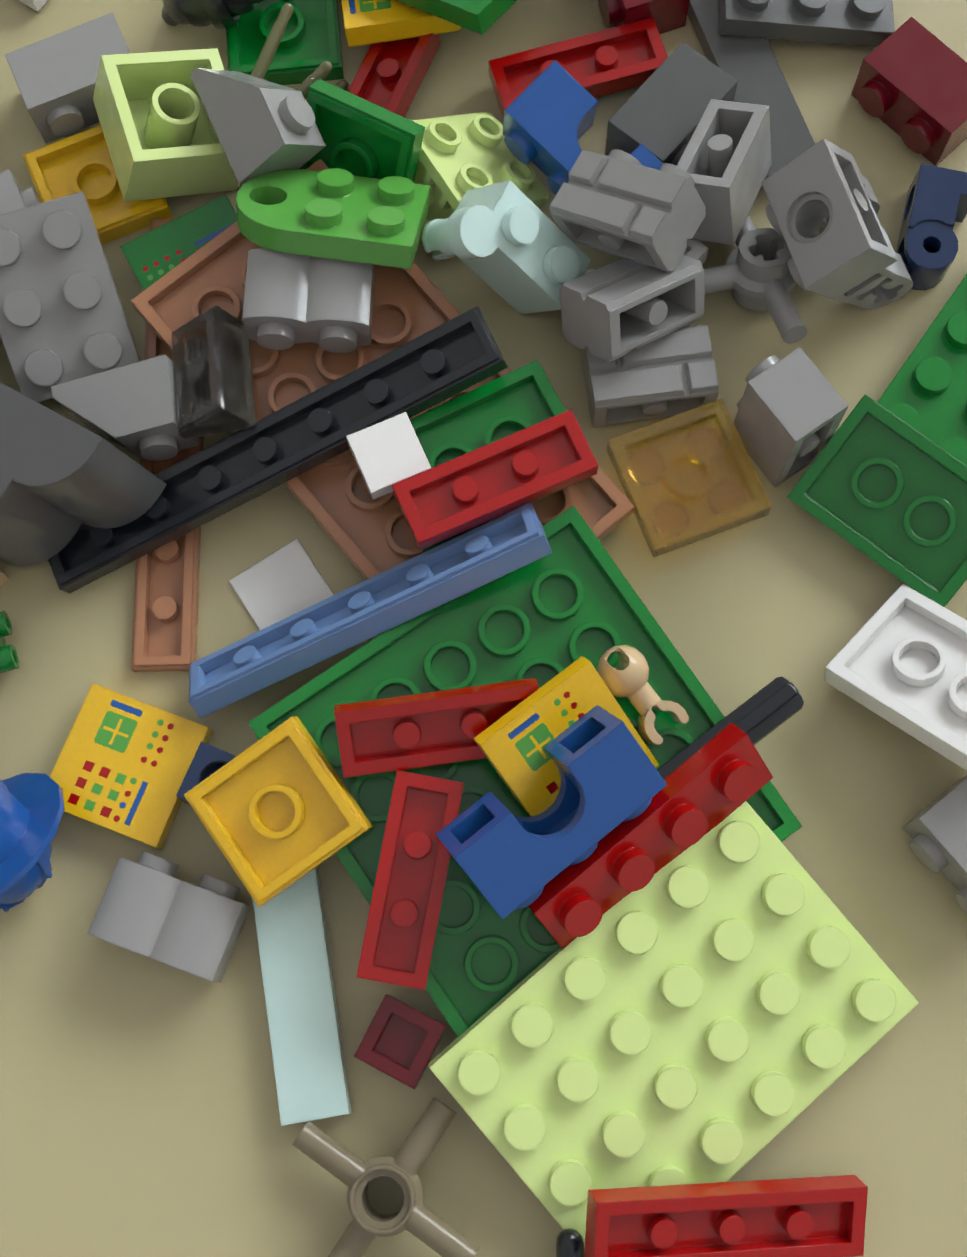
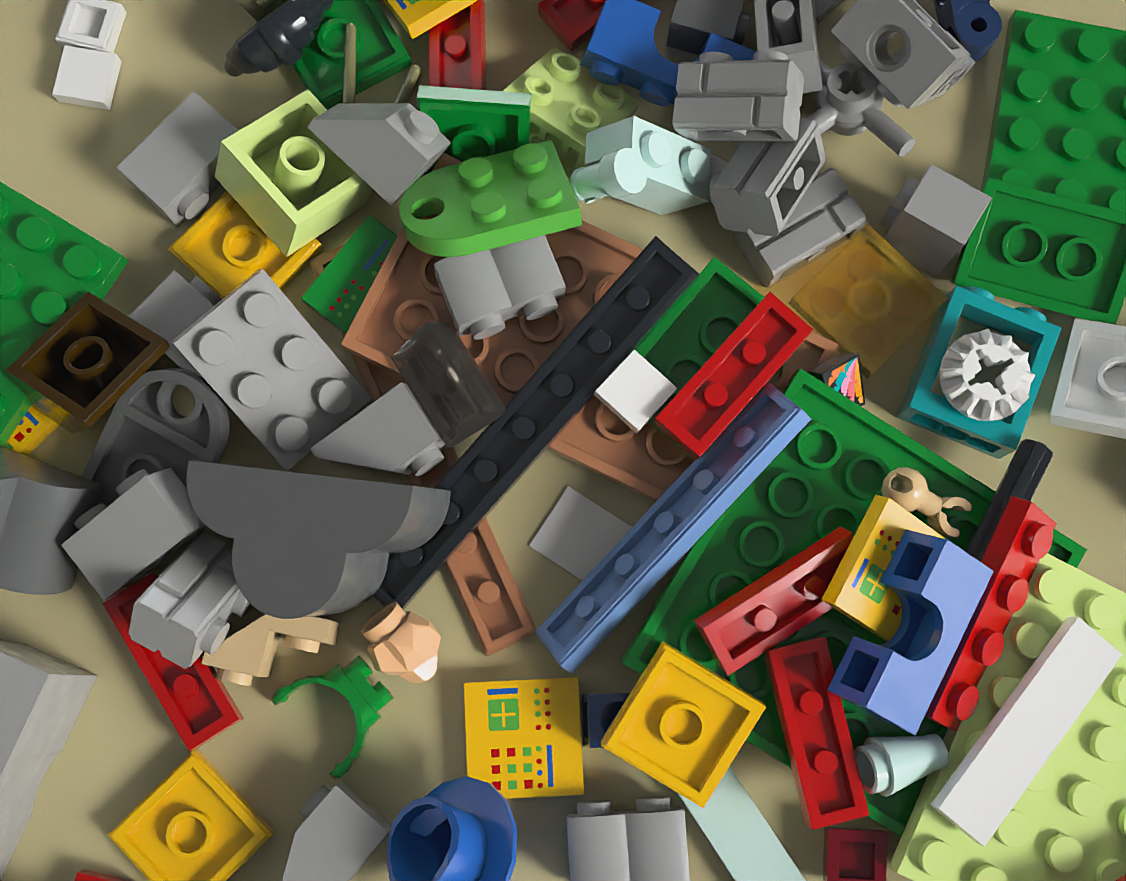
camera: 30 degrees left, 5 degrees up
(51, 618) = (402, 644): none -> light nougat rock
(485, 951) = (898, 761): none -> light aqua cone
(622, 538) = (843, 375): none -> tile
(635, 976) = (1026, 730): none -> white tile
(727, 637) = (935, 412): none -> teal window
(748, 613) = (982, 400): none -> white gear

